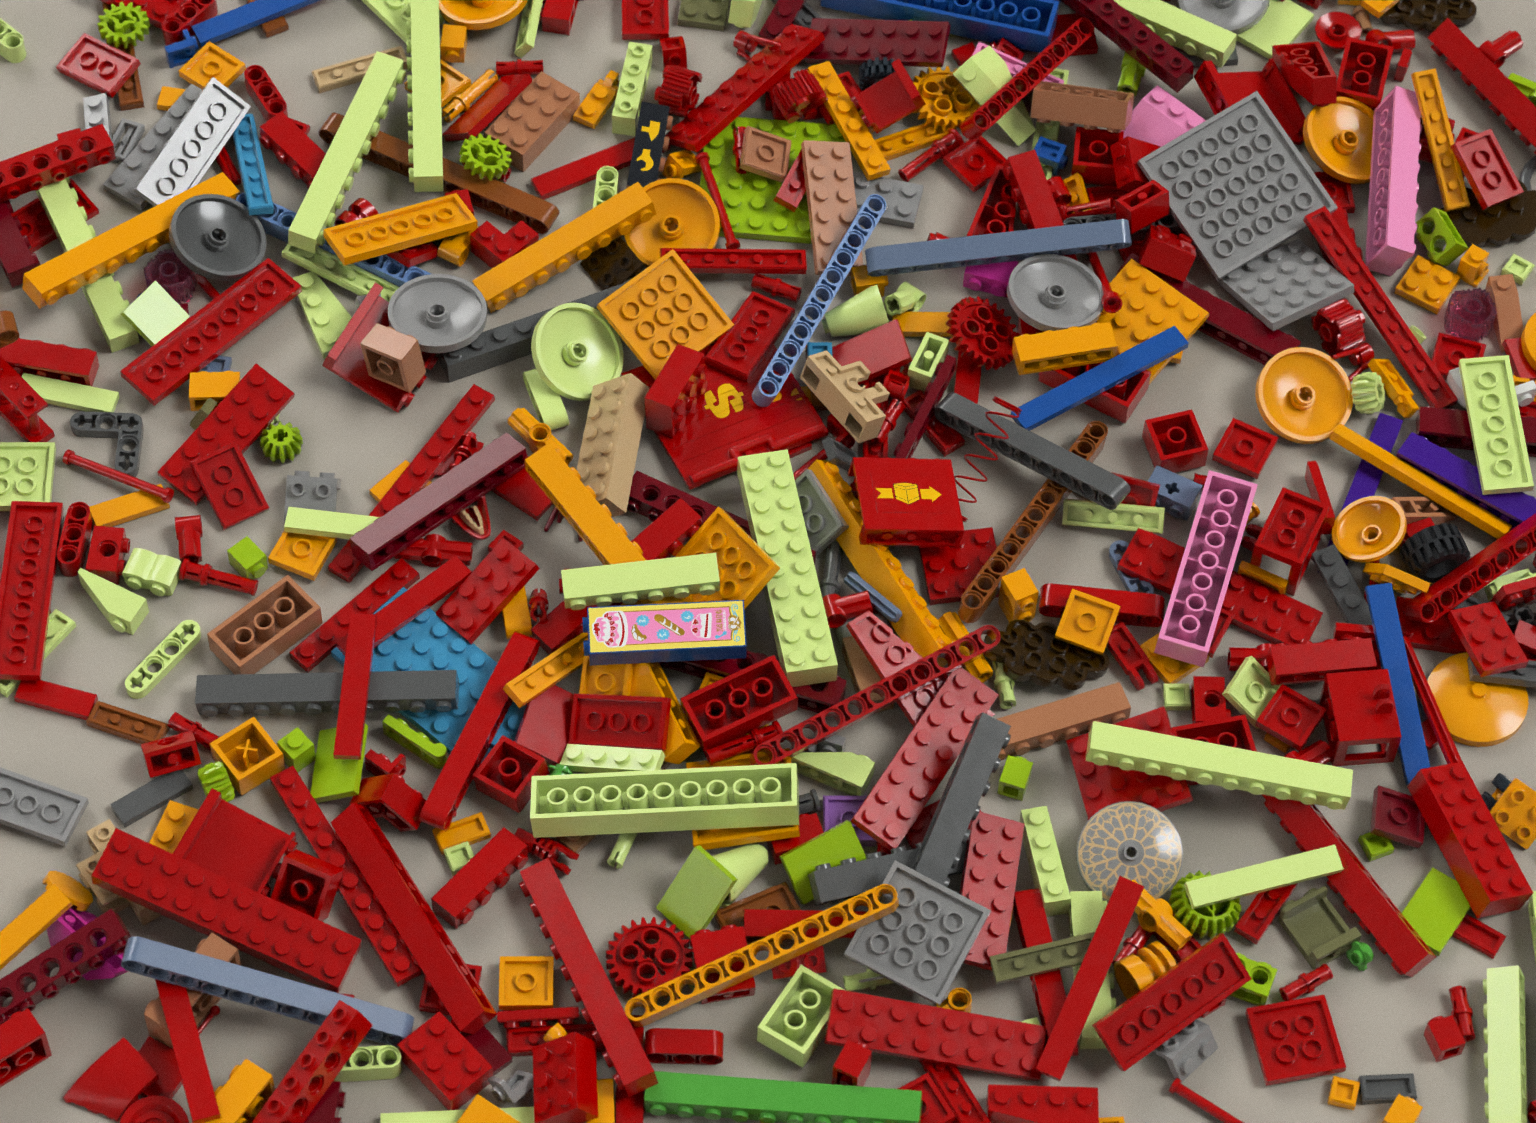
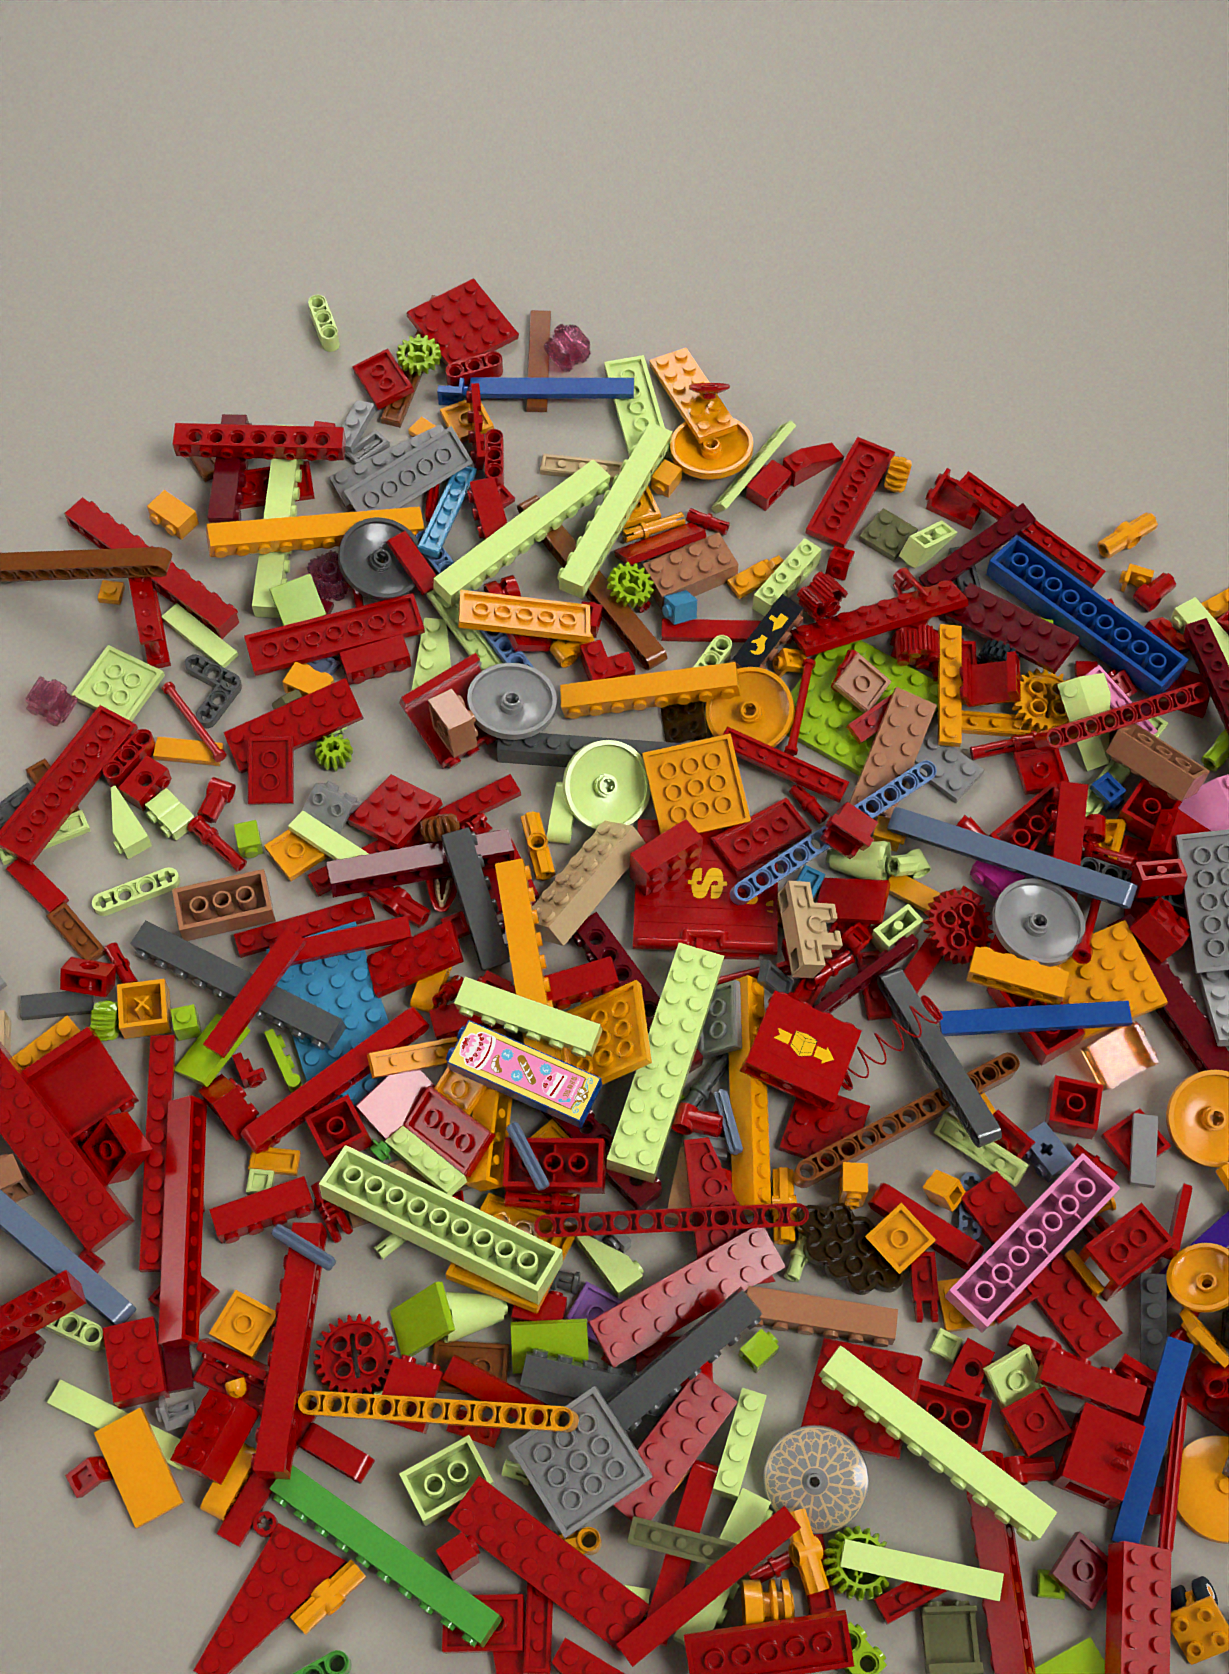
camera: 30 degrees right, 5 degrees up
(232, 69) = (478, 454): none -> red wing
(253, 227) = (412, 561): none -> red tile
(268, 337) = (375, 659): none -> red brick
(380, 468) = (394, 811): none -> red plate
(440, 459) = (436, 826): none -> dark orange gear
(515, 507) = (475, 898): none -> dark grey brick
(544, 159) = (680, 607): none -> dark azure brick
(546, 883) = (303, 1247): none -> sand blue axle
(713, 702) = (527, 1156): none -> sand blue axle
(838, 287) = (849, 830): none -> red plate
(1101, 565) = (944, 1190): none -> light orange brick
(1190, 379) = (1120, 1055): none -> clear orange panel
(1257, 450) = (1143, 1150): none -> light grey tile

